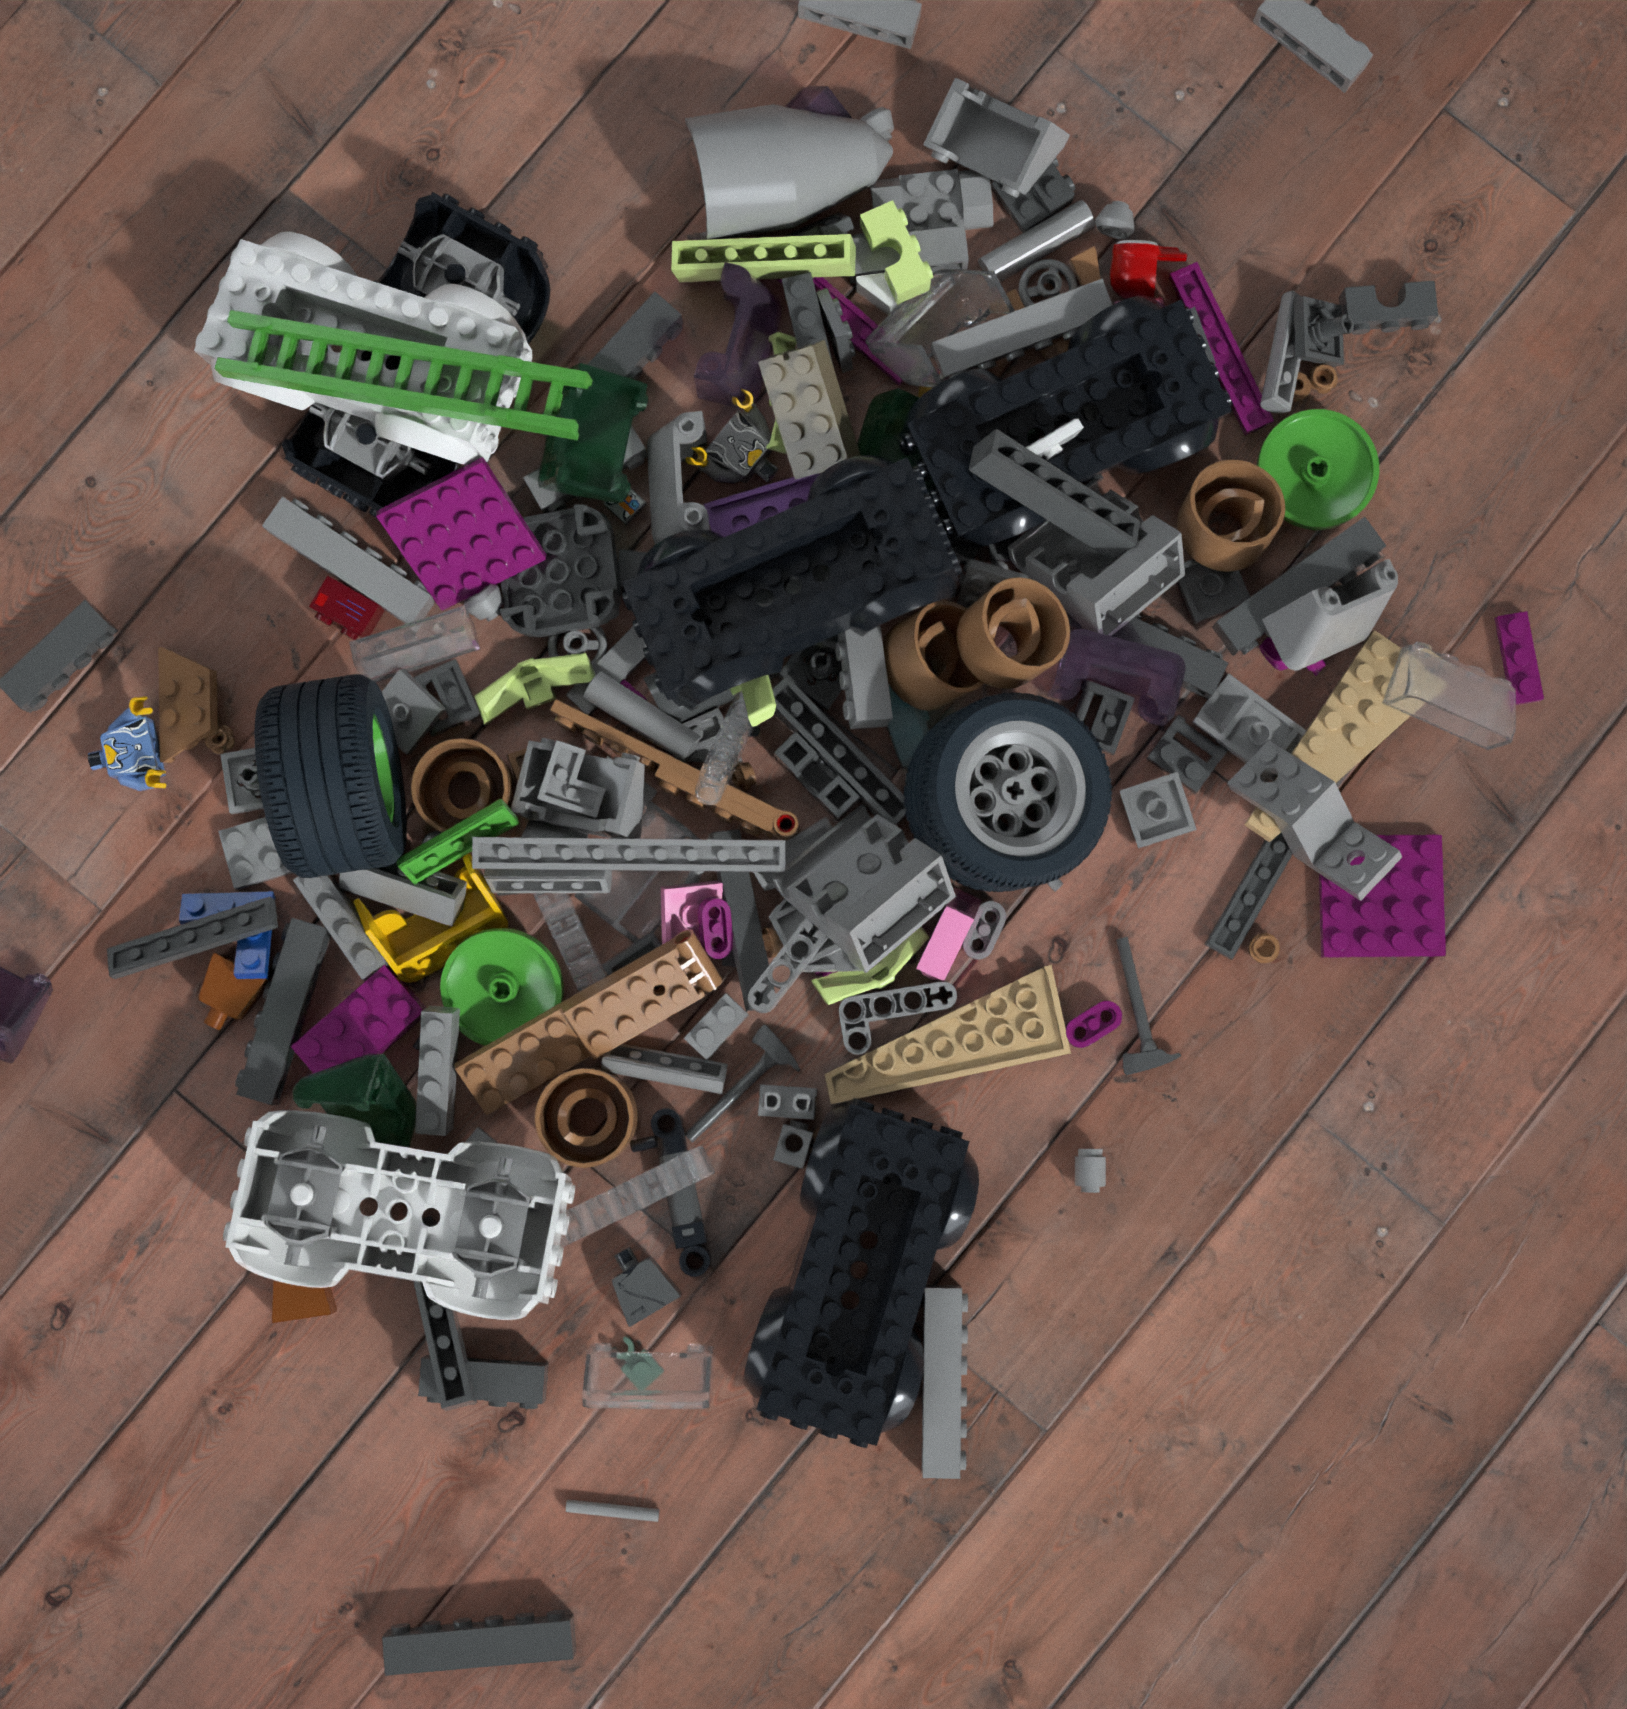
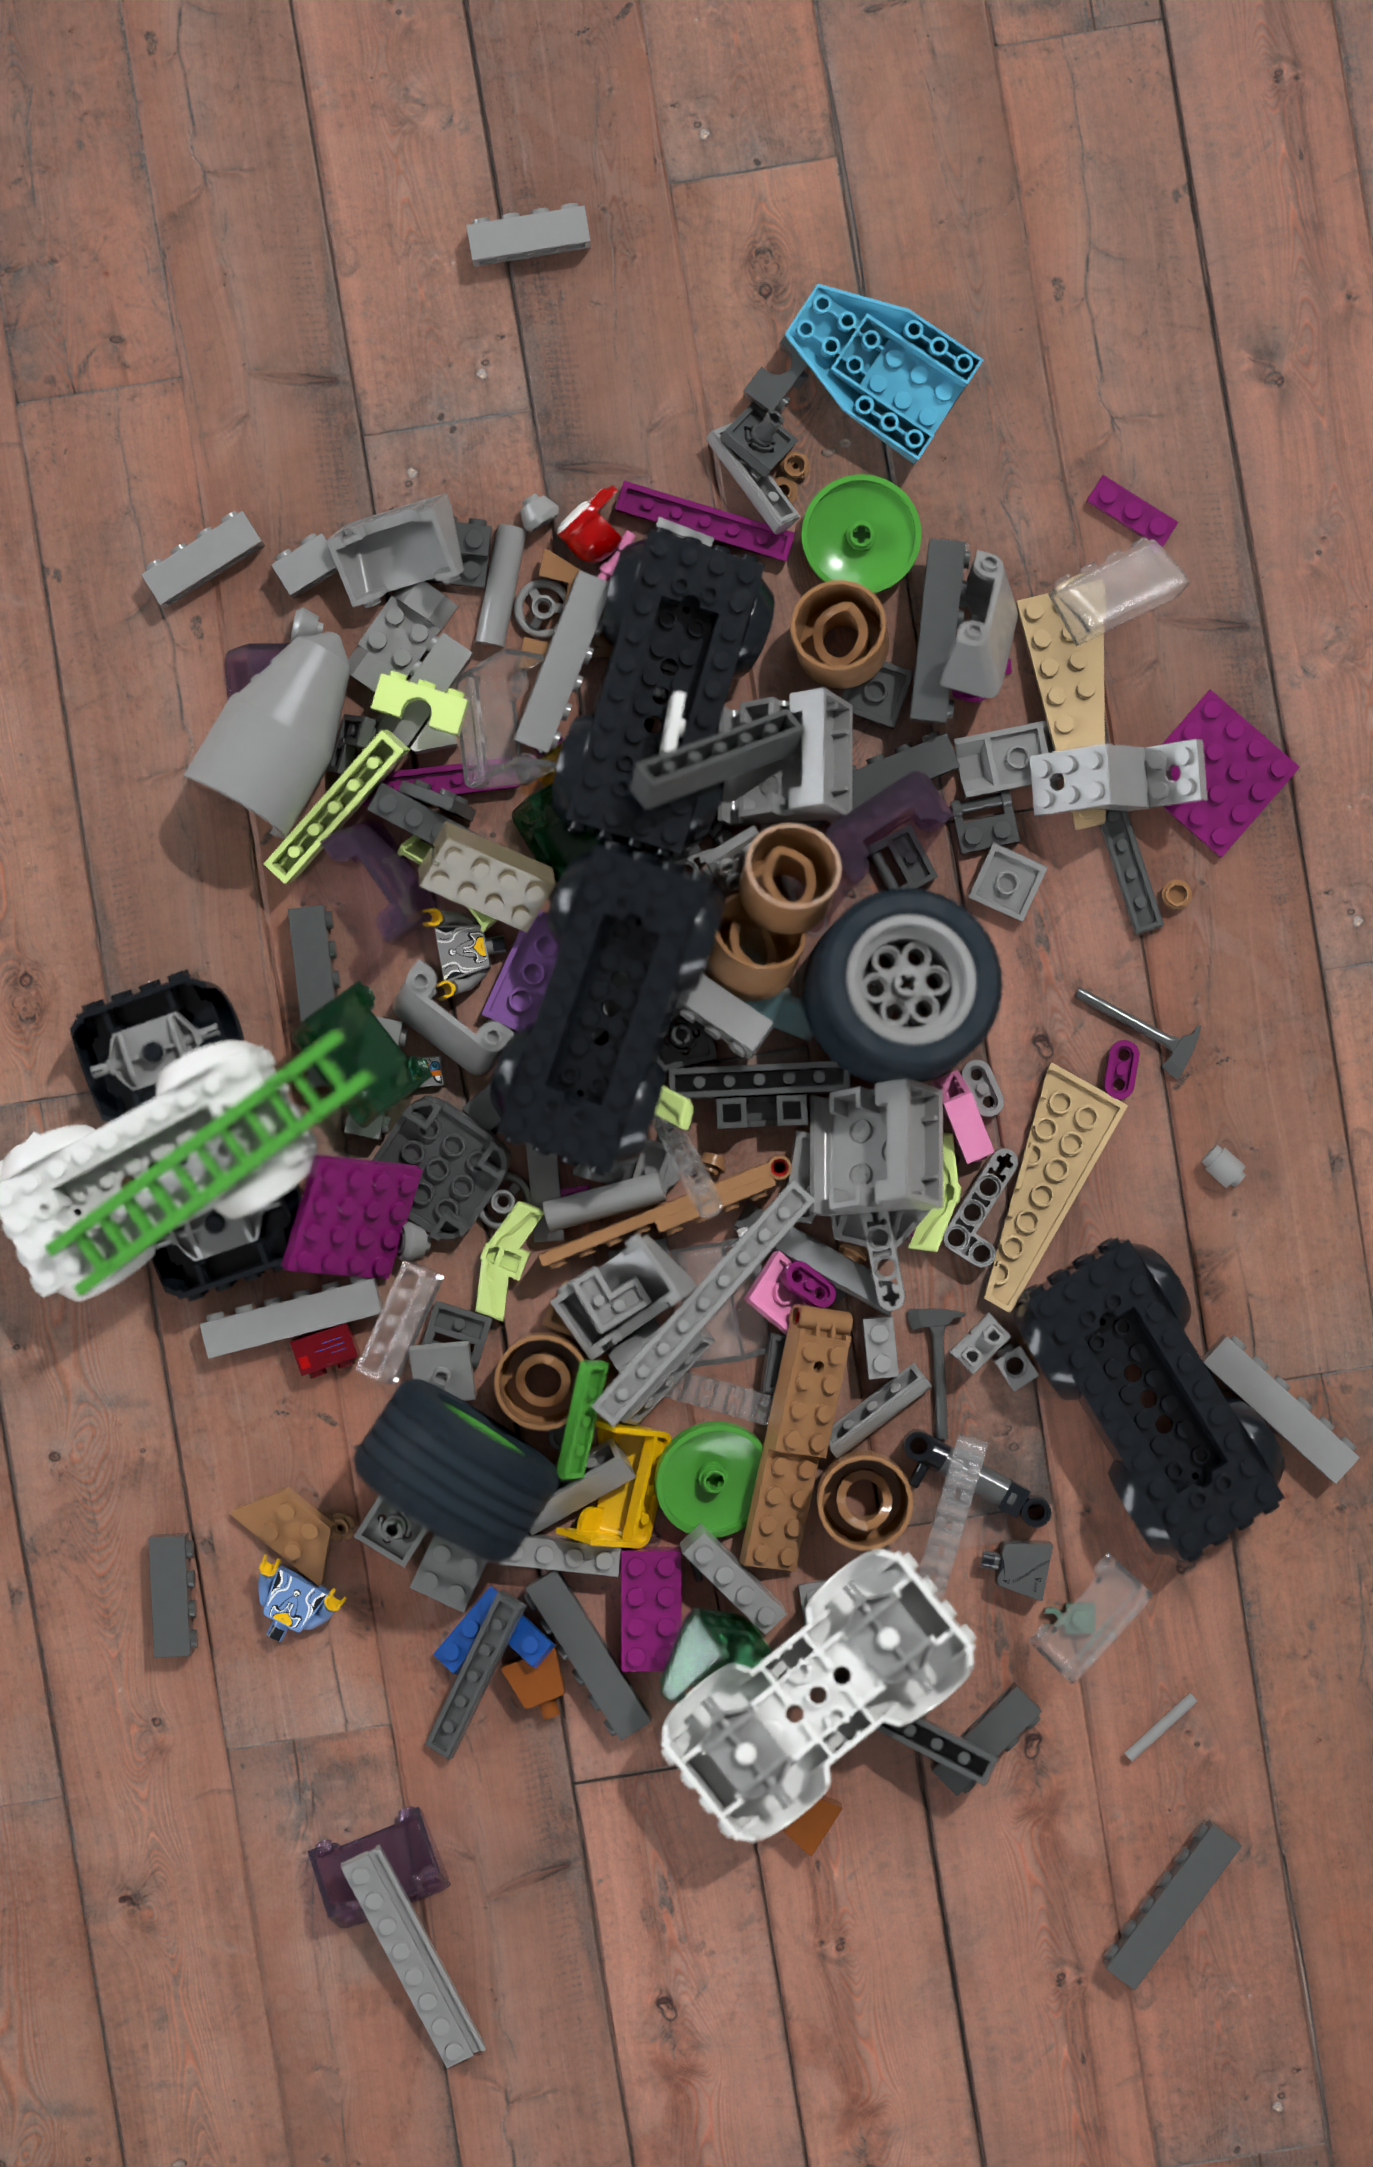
camera: 55 degrees left, 5 degrees up
(920, 86) = (305, 565): none -> light grey brick
(1459, 374) = (882, 365): none -> medium azure wedge

